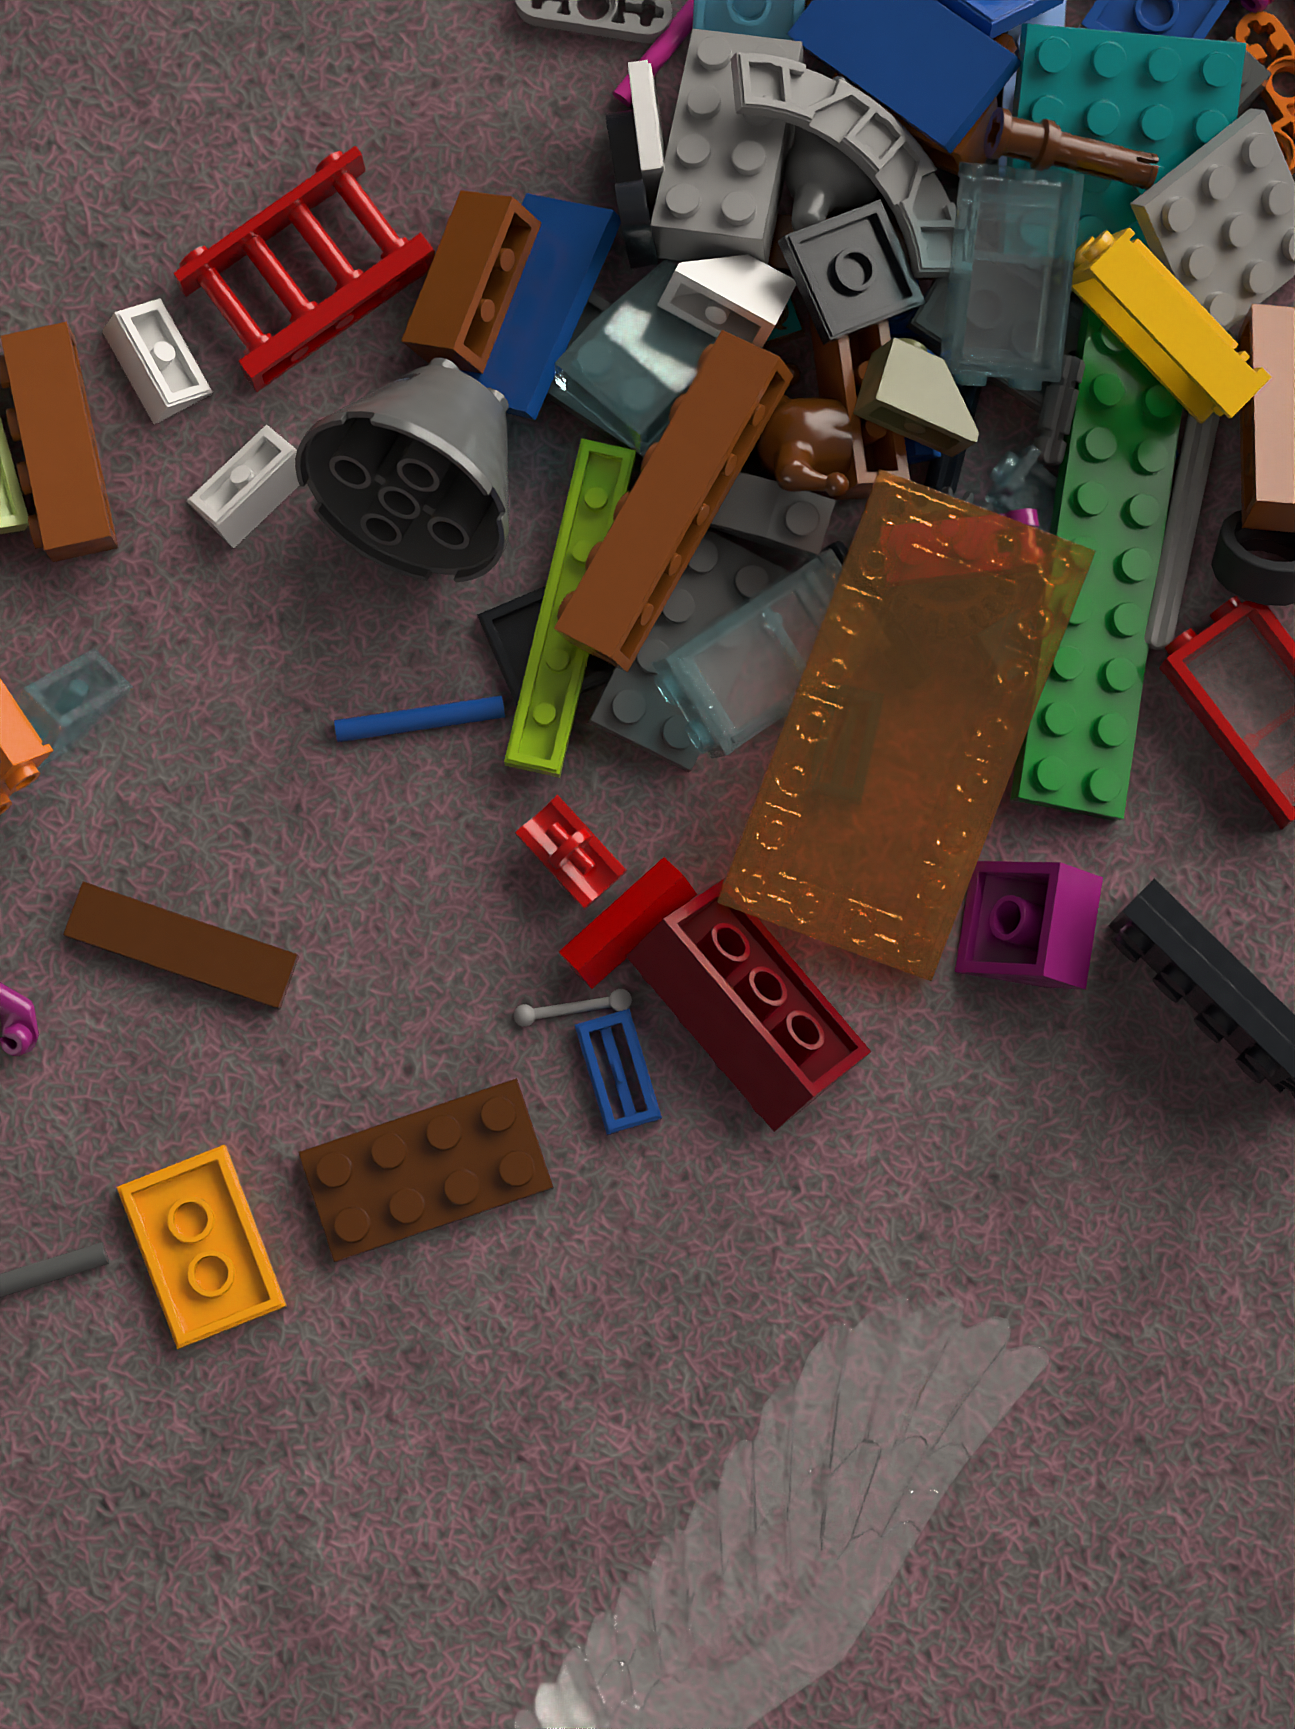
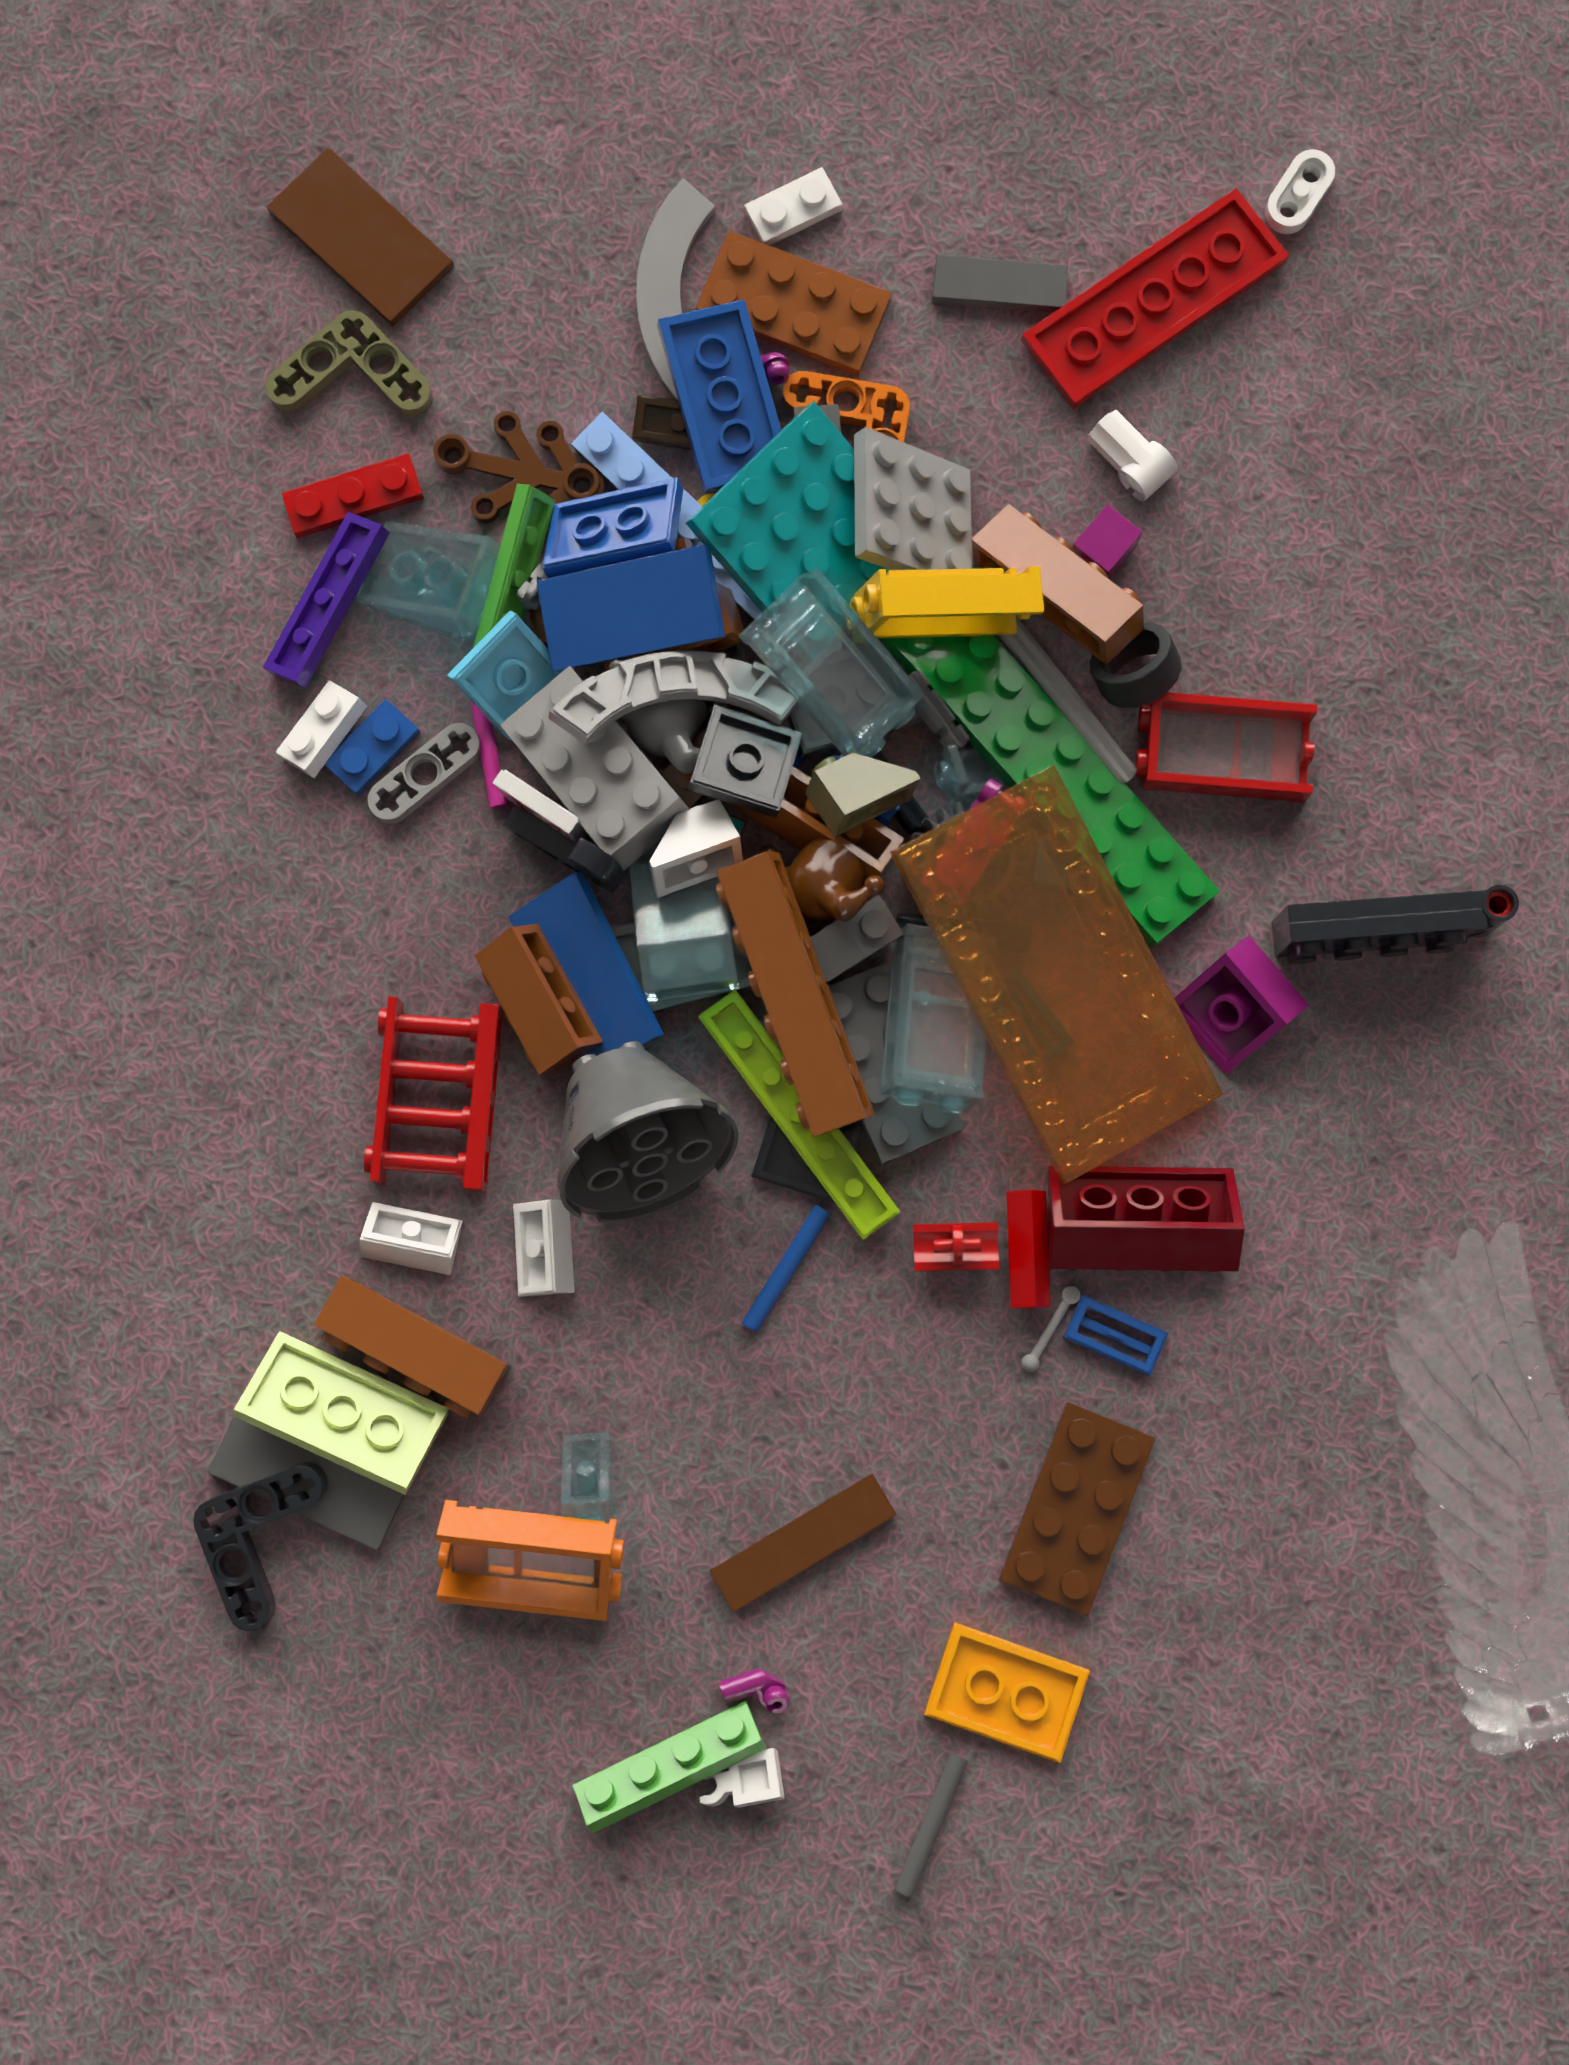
camera: 45 degrees left, 0 degrees up
(1048, 146) = (777, 574): reddish brown pin -> none

